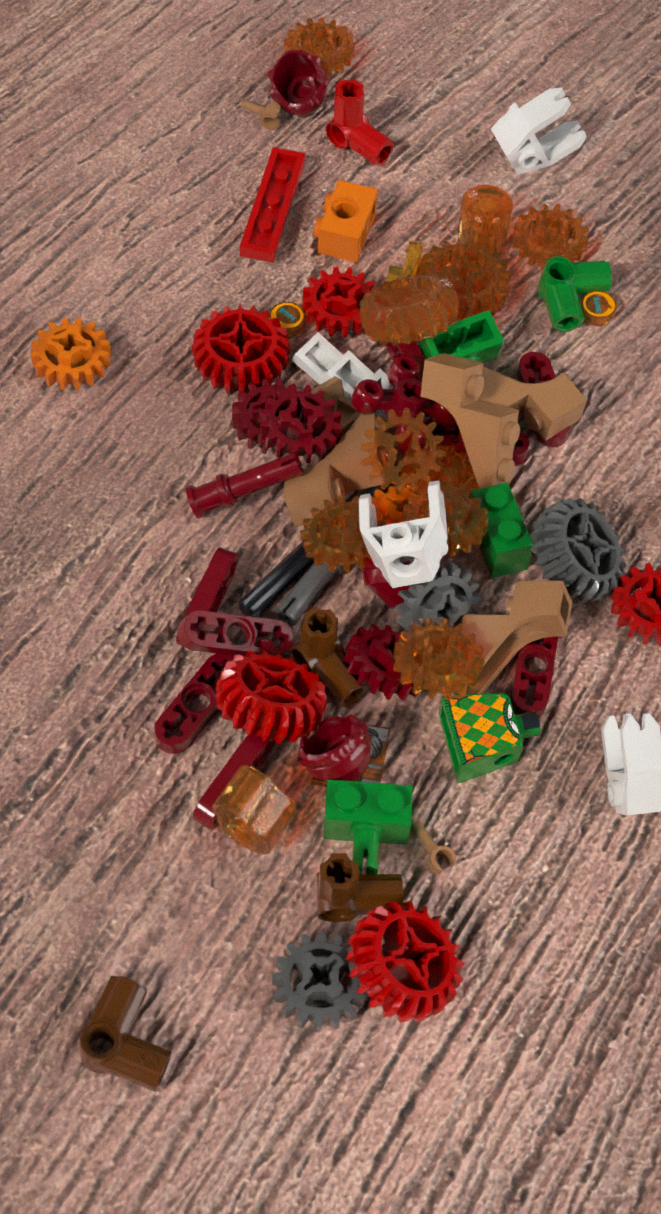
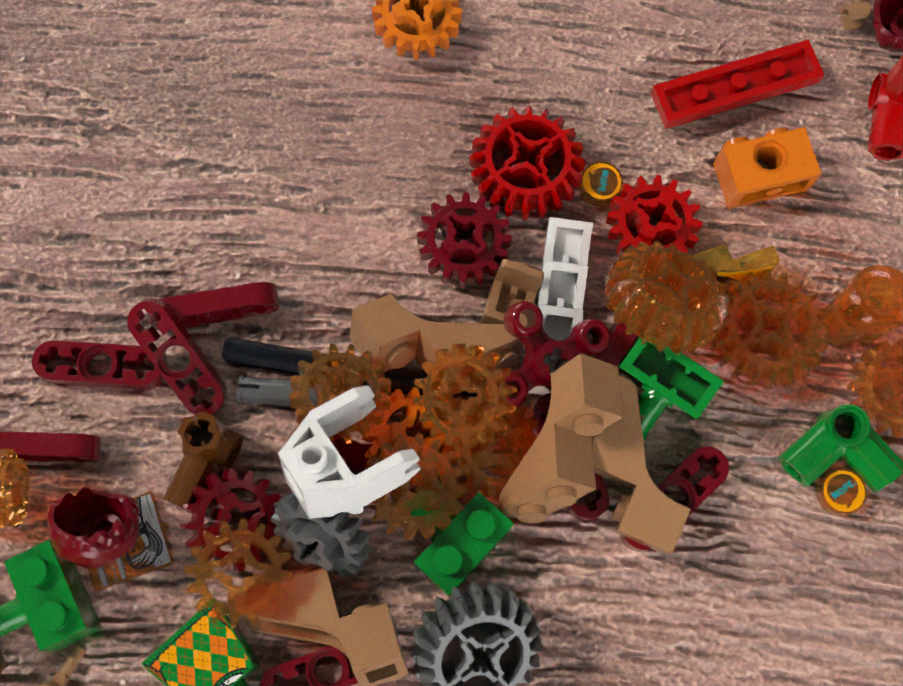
camera: 60 degrees right, 15 degrees up
(227, 489) = (342, 250): dark red pin -> none
(270, 696) = (134, 396): red gear -> none
(299, 421) = (439, 258): dark red gear -> none

